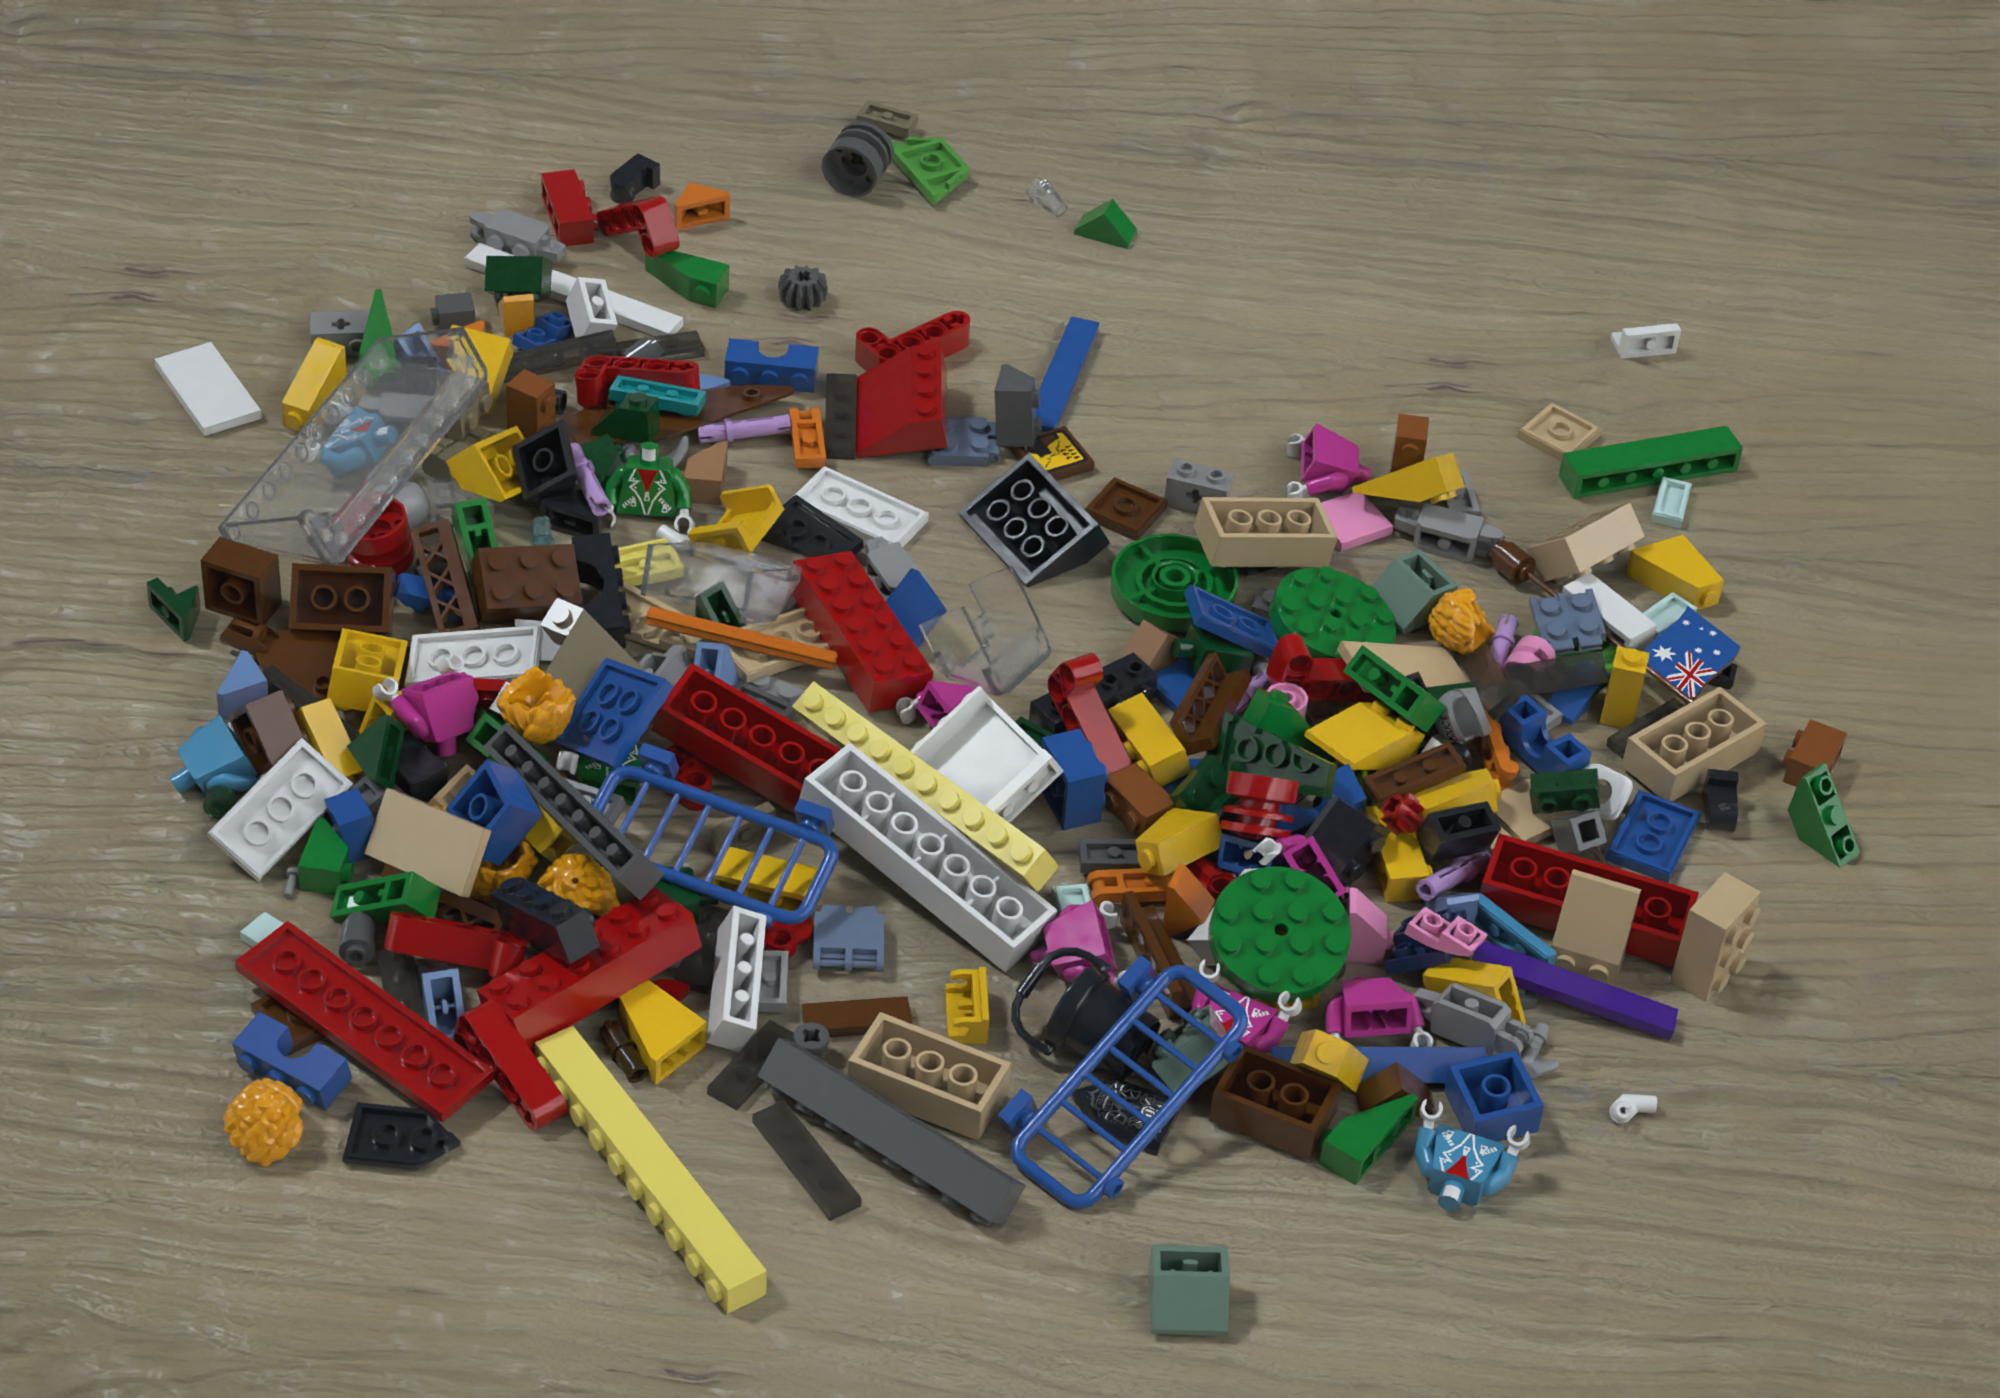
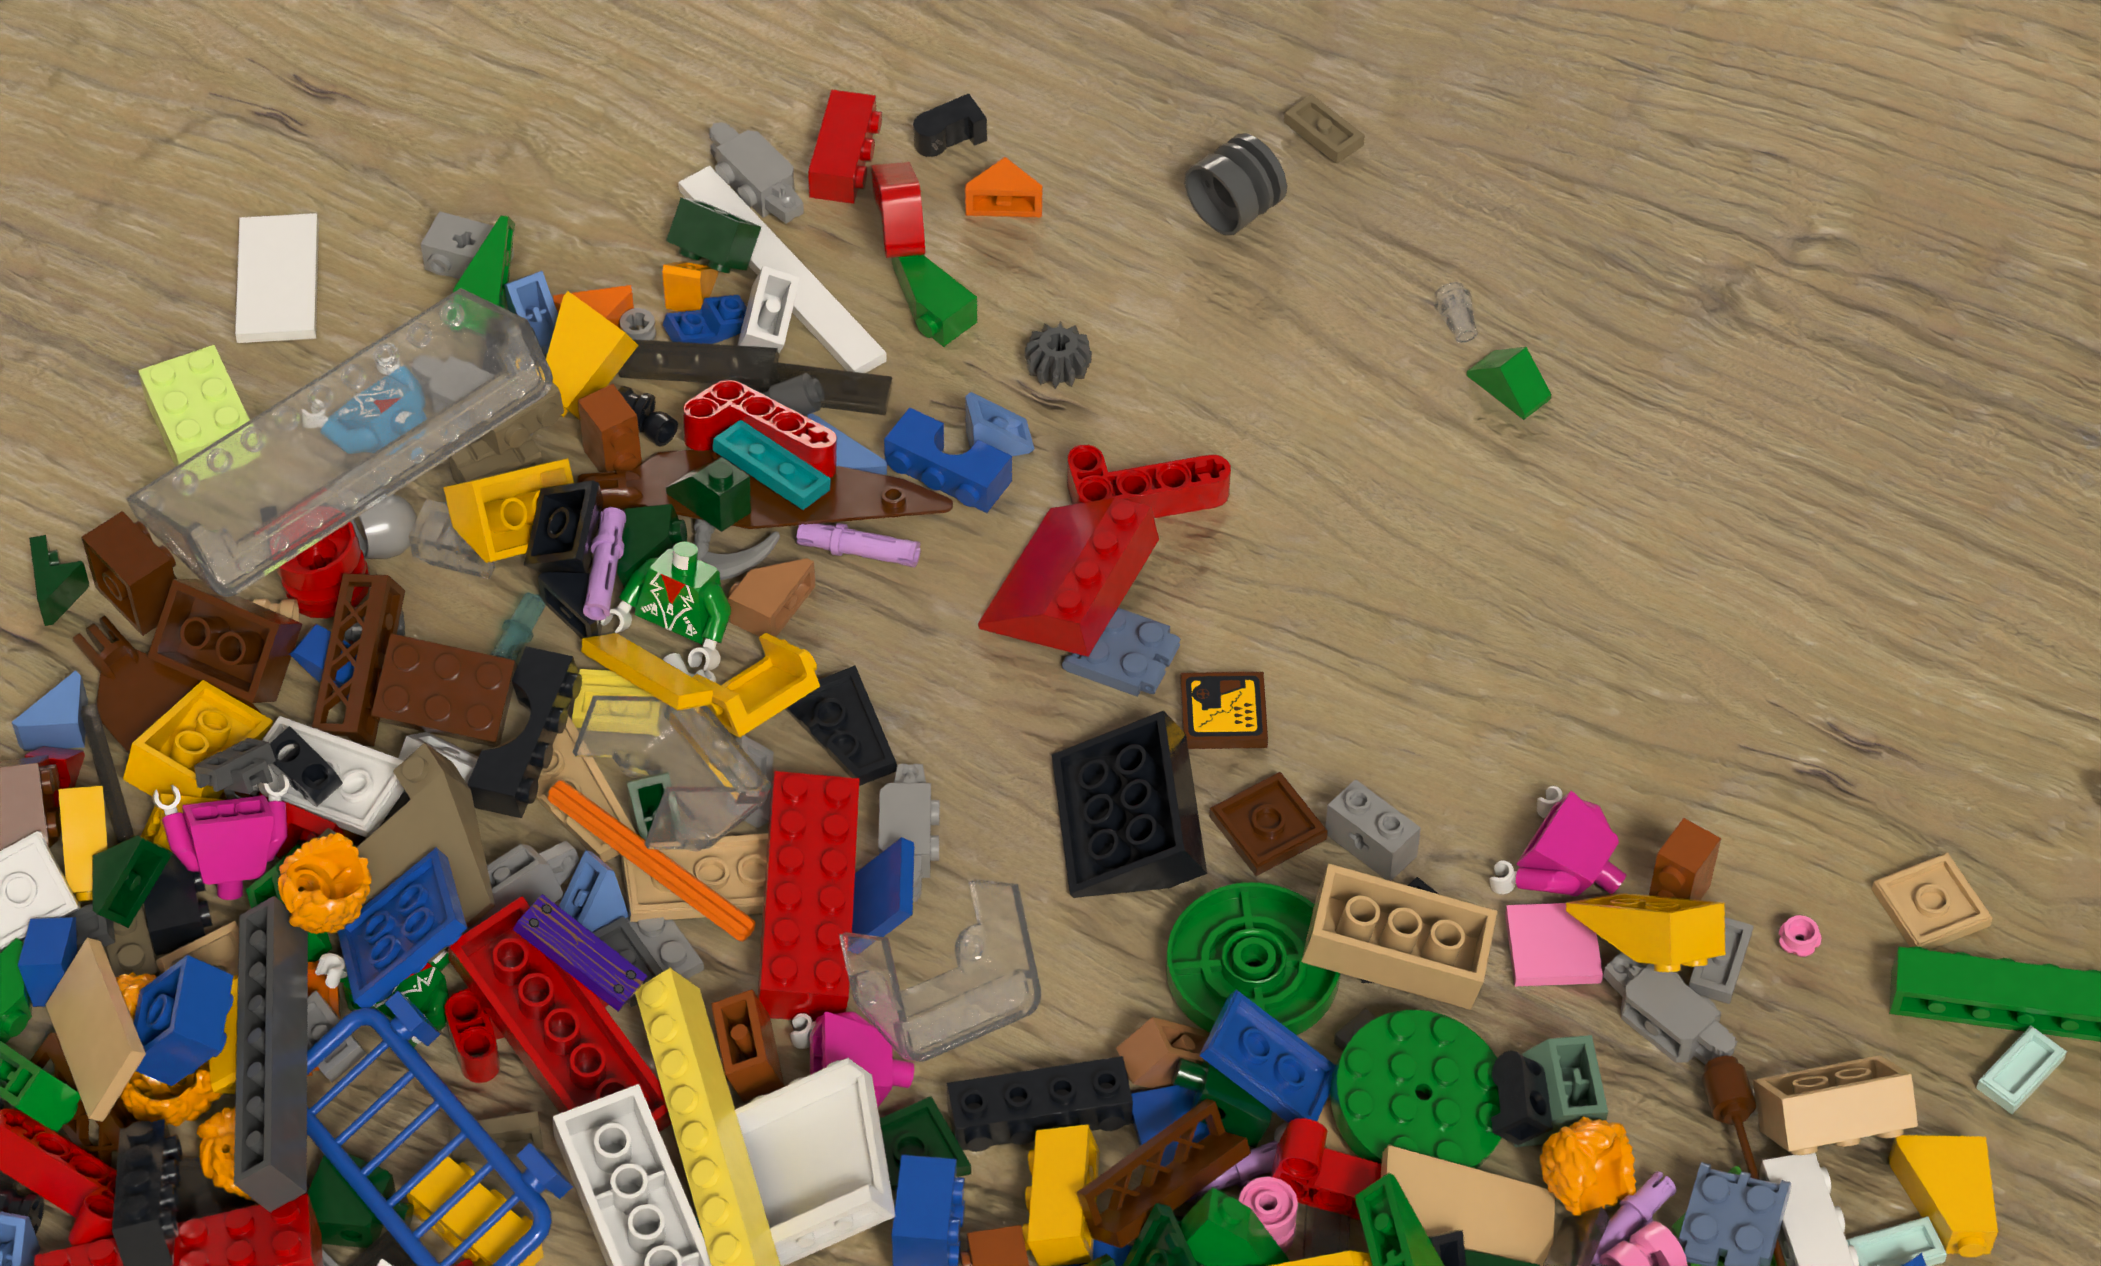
camera: 30 degrees right, 10 degrees up
(207, 475) = (192, 401): none -> yellowish green brick
(314, 383) = (383, 309): yellow slope -> none
(423, 656) = (237, 768): none -> dark grey piece
(452, 310) = (614, 261): dark grey brick -> none
(473, 529) = (441, 597): green slope -> none
(475, 649) = (304, 768): none -> black leg
(663, 533) = (647, 671): none -> yellow tile
(751, 686) = (580, 952): none -> dark purple tile
(782, 334) = (996, 426): none -> medium blue slope
(807, 438) = (928, 581): orange plate -> none
(840, 416) = (992, 561): clear smoke tile -> none
(863, 508) = (932, 710): white tile -> none
(884, 715) = (747, 1045): none -> dark orange brick
(930, 166) = (1335, 215): bright green wing -> none
(1016, 408) = (1192, 633): dark grey slope -> none
(1065, 370) = (1311, 591): blue tile -> none
(1081, 708) = (992, 1144): red beam -> none
(1406, 602) = (1521, 1097): none -> black leg
(1495, 471) = (1801, 927): none -> bright pink plate

